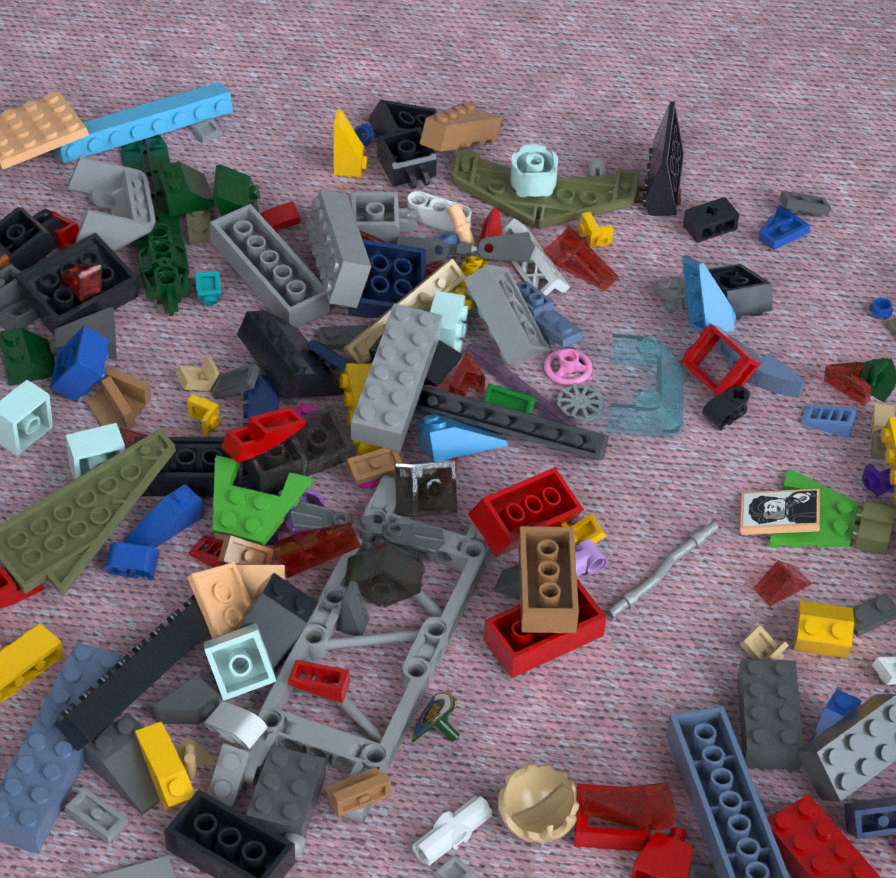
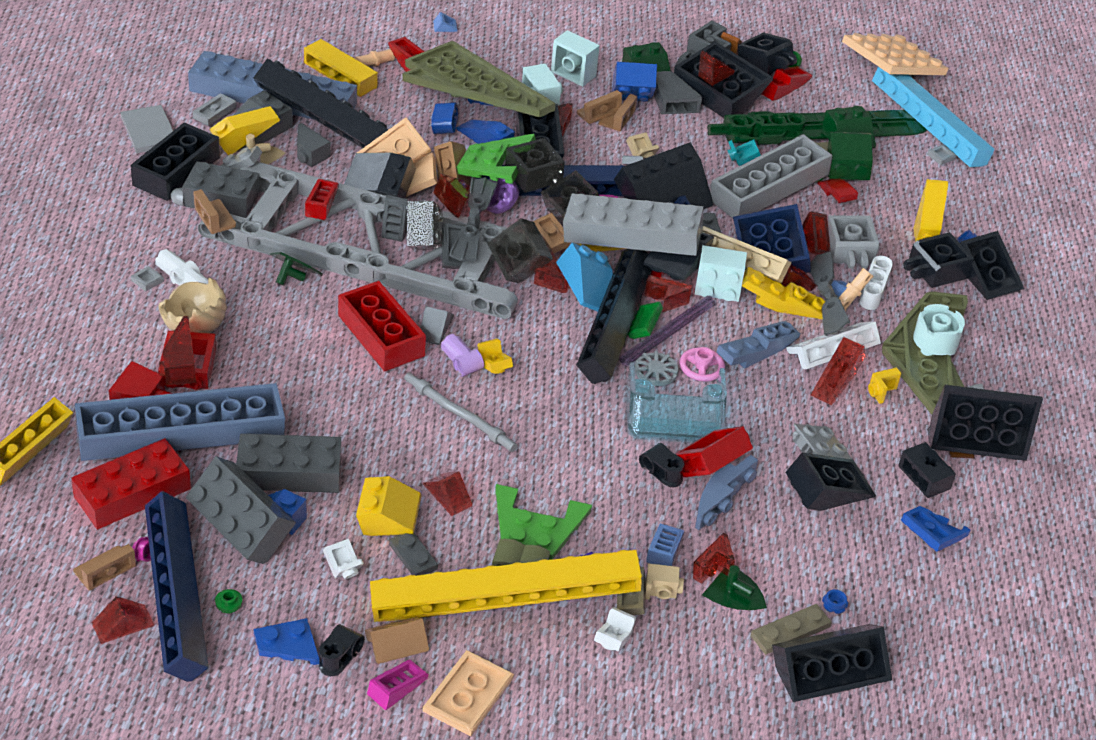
camera: 85 degrees right, 5 degrees down
(120, 190) = (814, 102): light grey windscreen -> none
(204, 411) = (601, 153): yellow bracket -> none
(236, 725) = (279, 157): white beam -> none
(239, 661) = (336, 156): light aqua brick -> none
(262, 433) = (545, 140): red slope -> none
(338, 248) = (763, 192): light grey brick -> none
(460, 127) = (981, 281): medium nougat wedge -> none
(491, 228) = (863, 313): red slope -> none
(506, 314) = (742, 307): light grey slope -> none
(534, 502) = (499, 307): red brick -> none
(548, 580) = (409, 302): medium nougat brick -> none
(705, 299) = (788, 432): dark azure slope -> none
(761, 646) = (368, 465): tan bracket -> none
(780, 511) = (530, 490): tile -> none
(801, 202) = (976, 546): dark grey plate -> none

